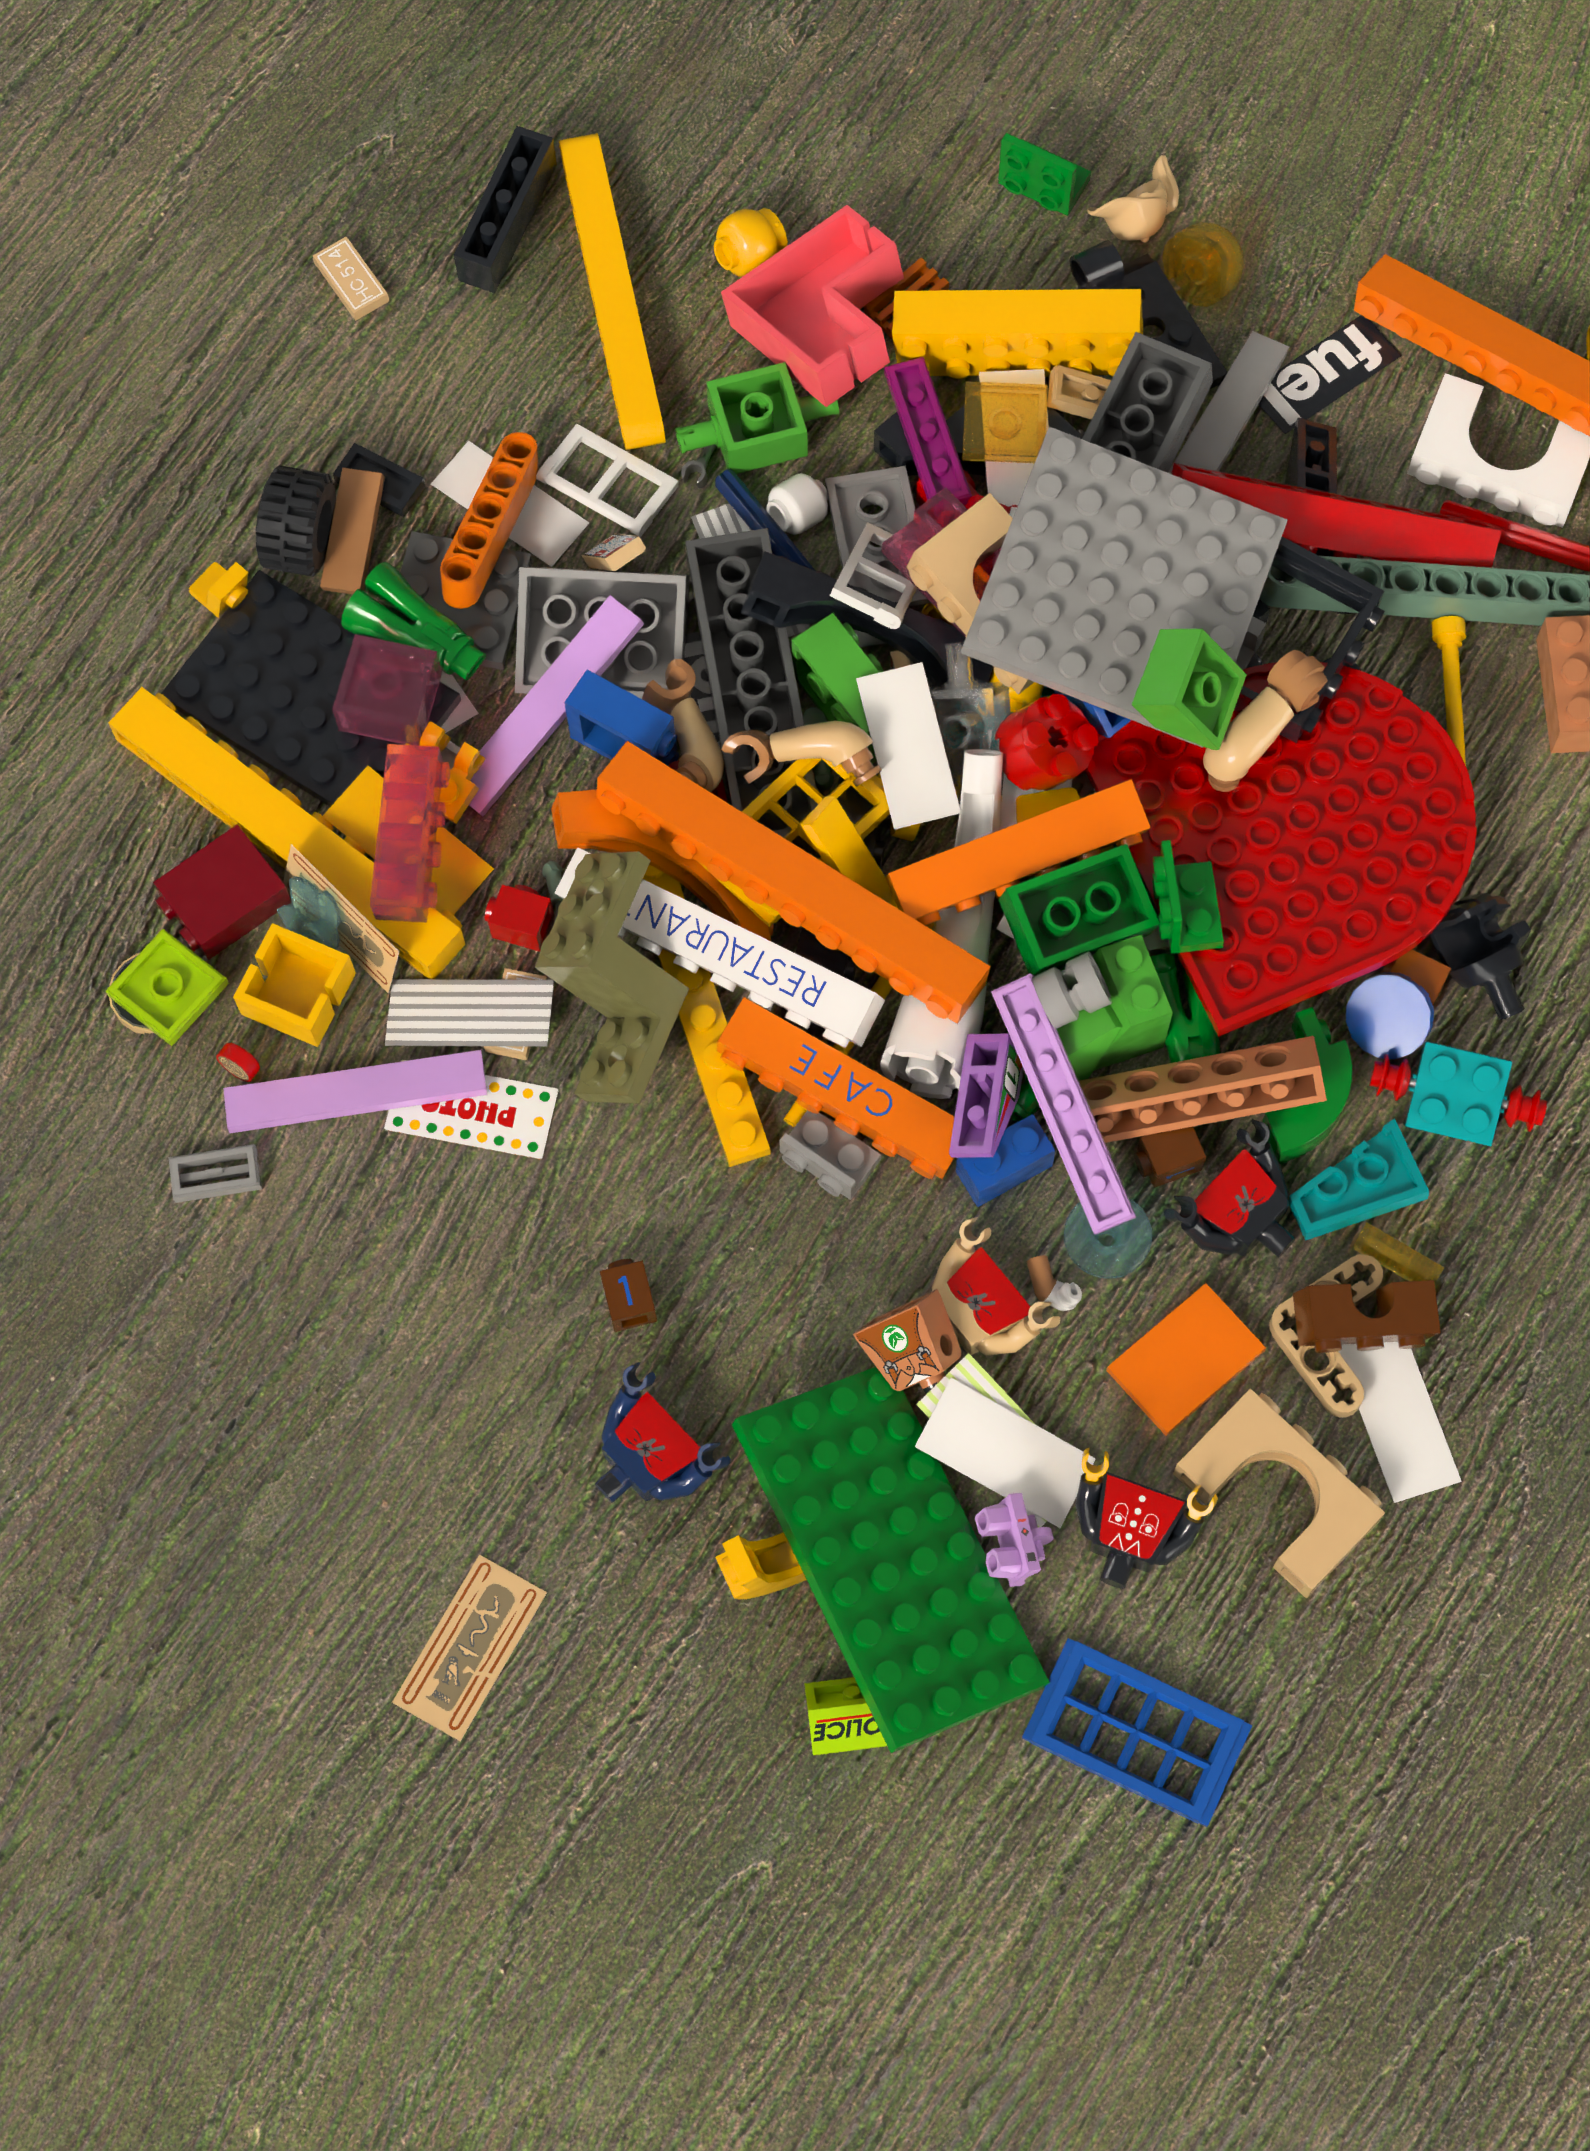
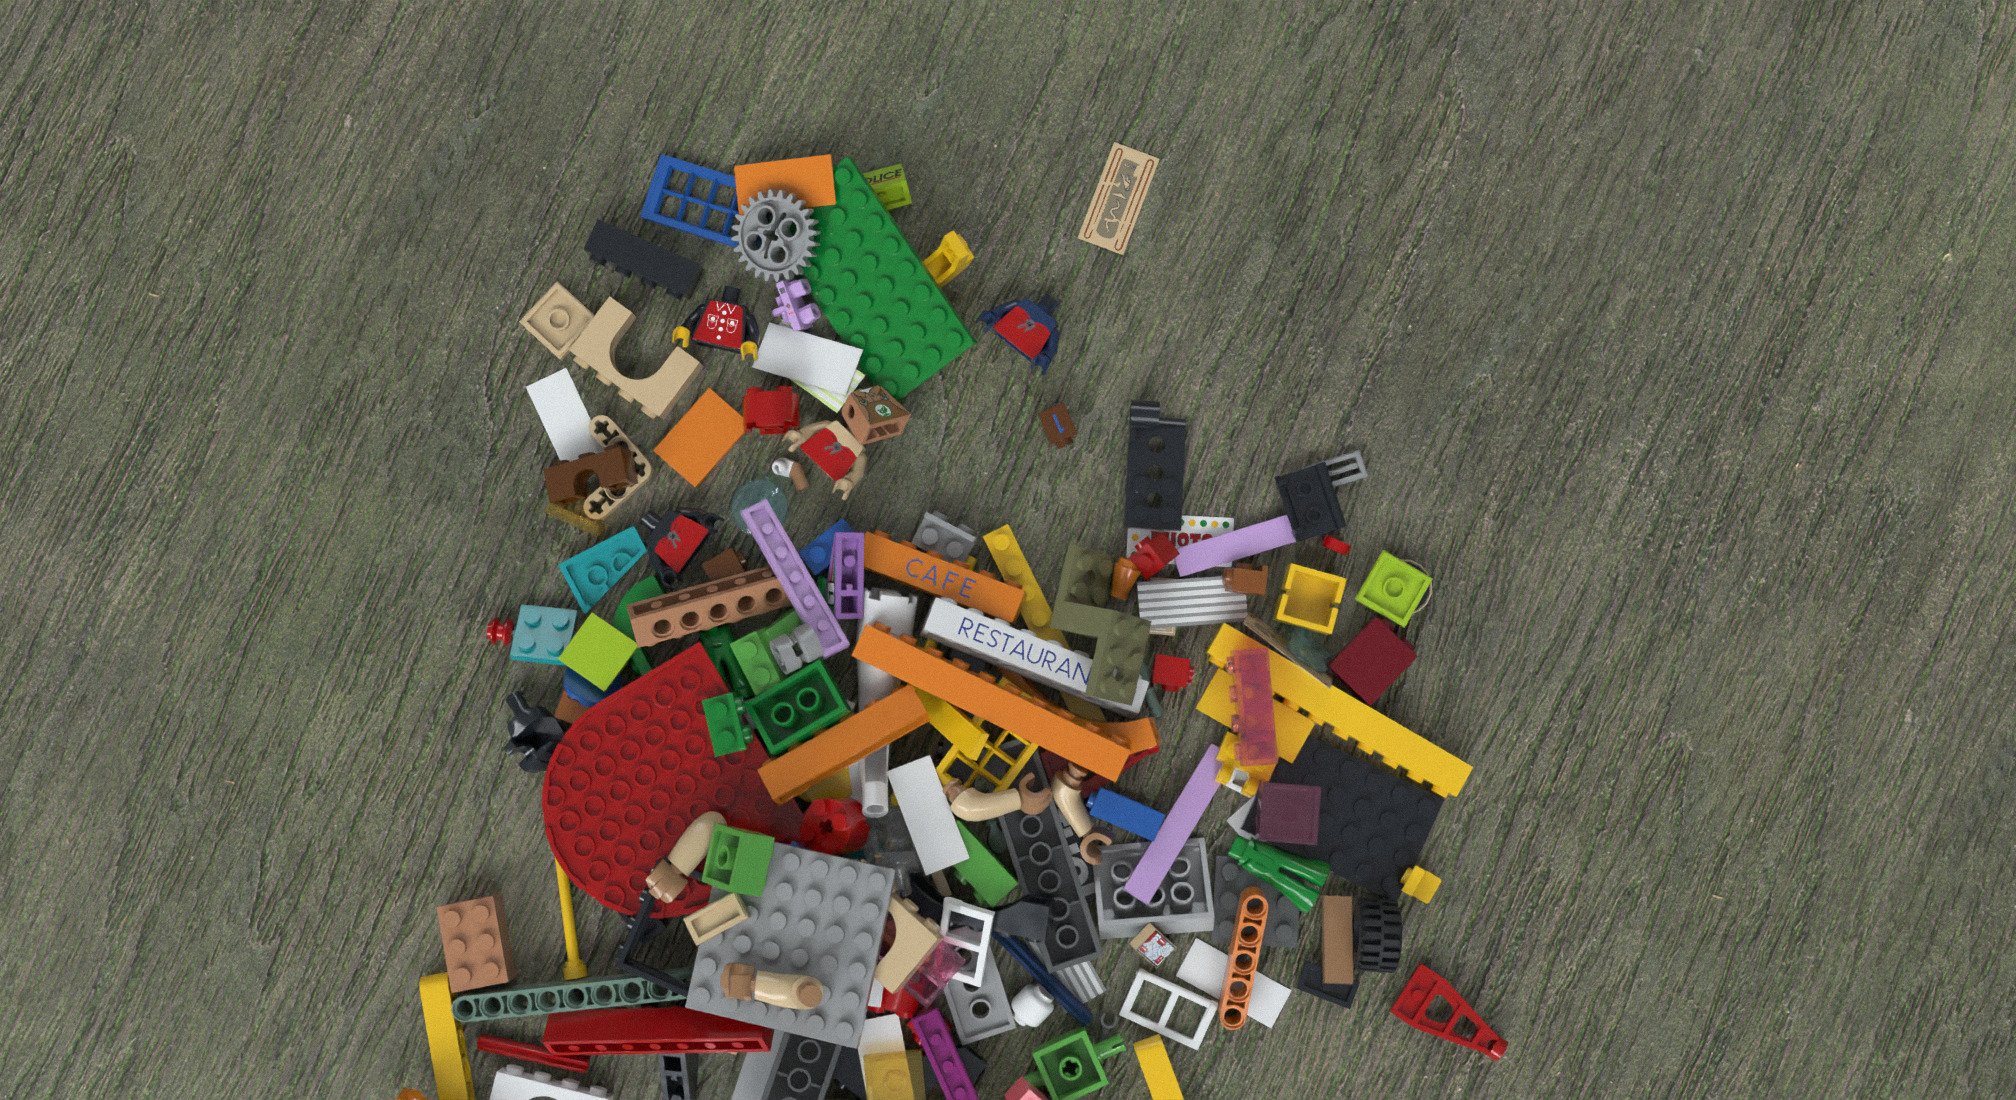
camera: 175 degrees right, 15 degrees up
(248, 457) = (1415, 999): none -> red plate
(263, 1127) = (1310, 502): none -> black piece
(382, 1028) = (1245, 579): none -> dark orange brick
(492, 1282) = (1144, 426): none -> black hinge
(514, 1078) = (1153, 554): none -> red brick
(563, 1062) = (1123, 578): none -> orange cone
(1006, 1727) = (804, 176): none -> orange sticker
(1064, 1673) = (796, 247): none -> light grey gear
(1071, 1372) = (771, 410): none -> red brick
(1147, 509) = (770, 987): none -> piece
(1233, 618) = (716, 917): none -> tan tile
(1252, 1649) = (643, 259): none -> black brick
(1375, 1045) = (598, 652): none -> lime tile
(1398, 1576) = (557, 320): none -> tan tile

